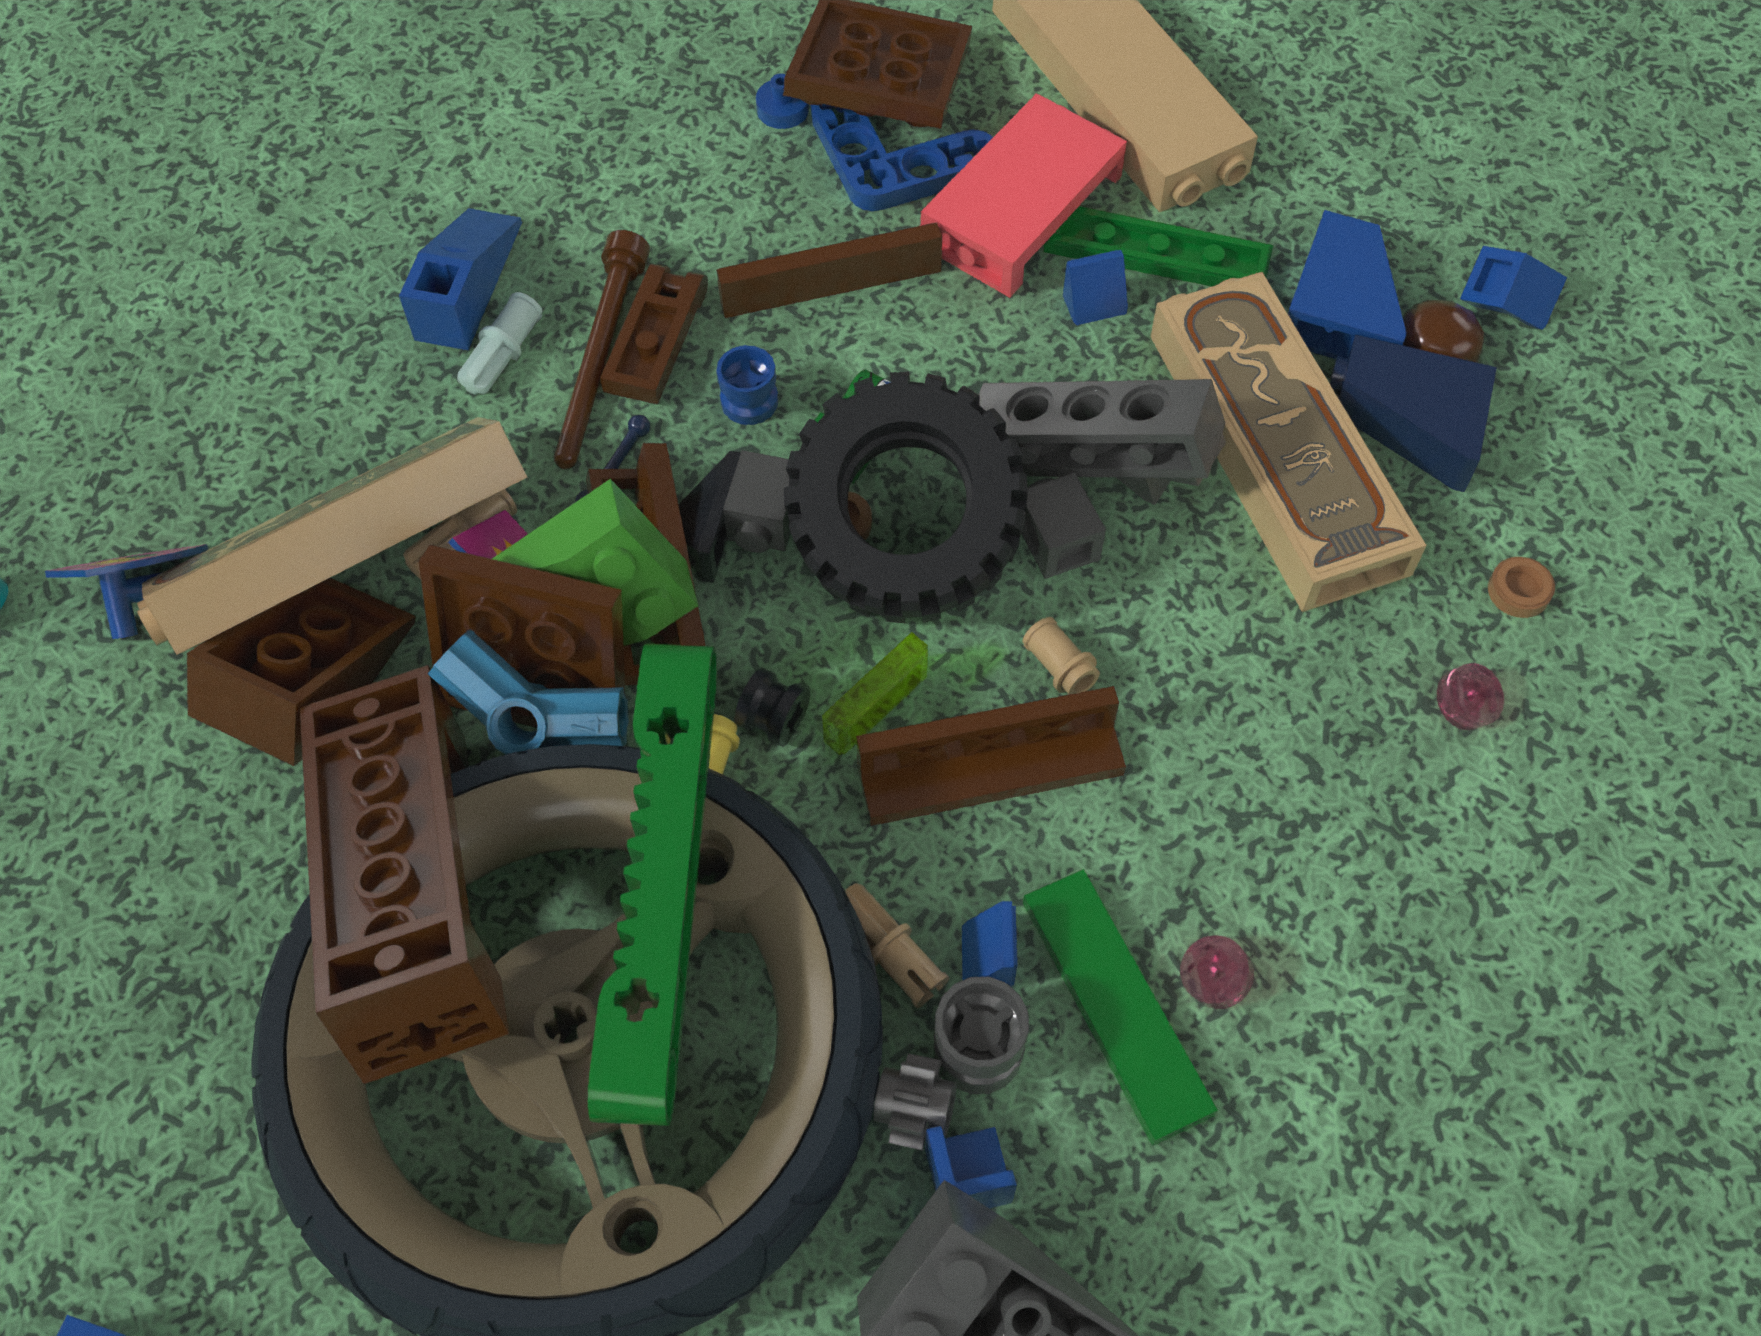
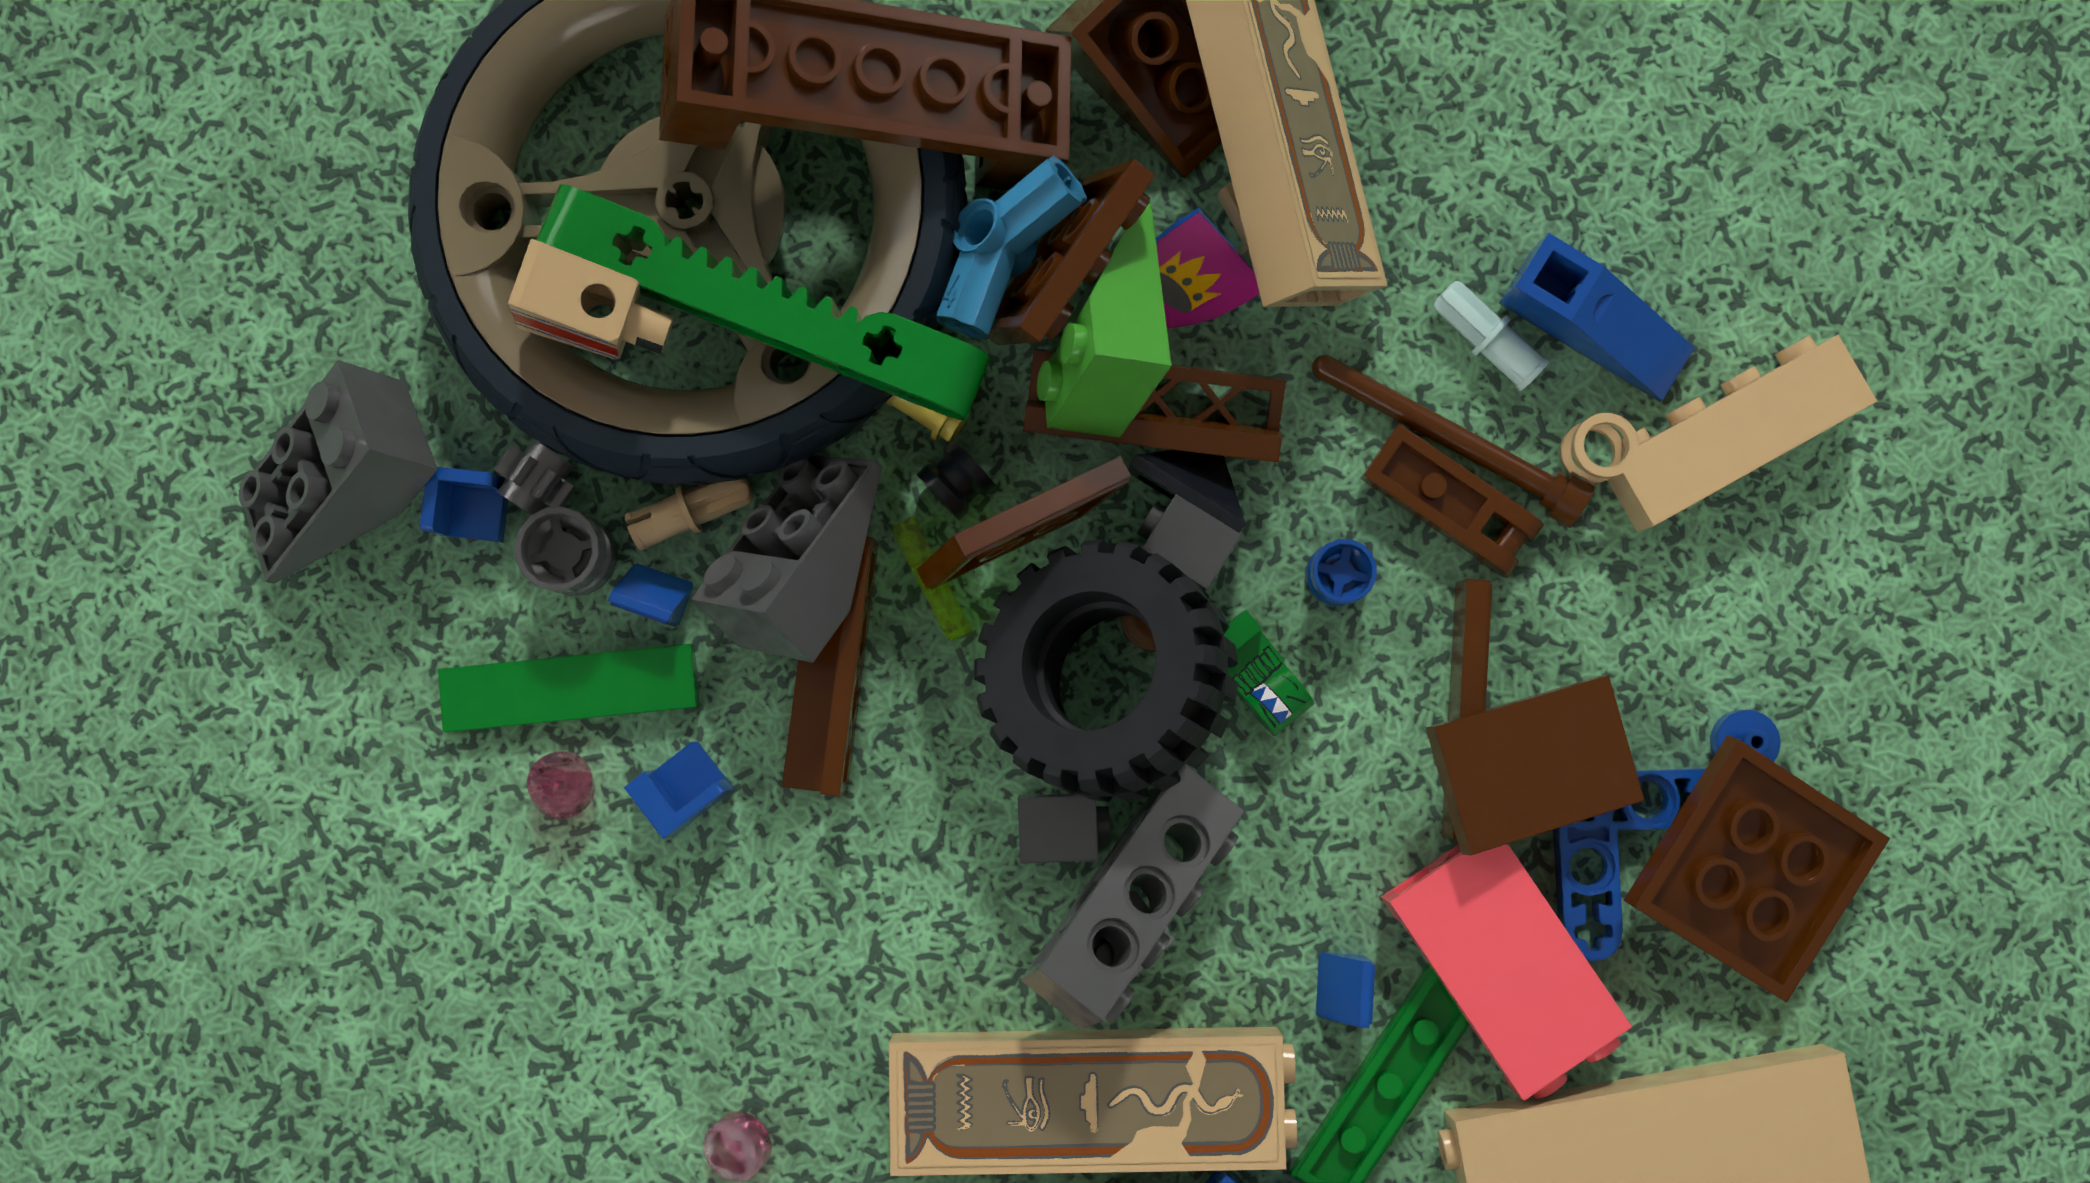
camera: 115 degrees right, 25 degrees up
(539, 167) = (1727, 438): none -> tan hinge
(637, 427) = (1337, 450): dark blue hinge -> none
(715, 1040) = (560, 289): none -> tan torso
(799, 603) = (1023, 524): none -> reddish brown tile
(858, 200) = (1534, 764): none -> reddish brown tile
(902, 801) = (796, 559): none -> dark grey slope
(1060, 656) = (916, 773): tan pin -> none
(1170, 852) = (679, 790): none -> blue panel

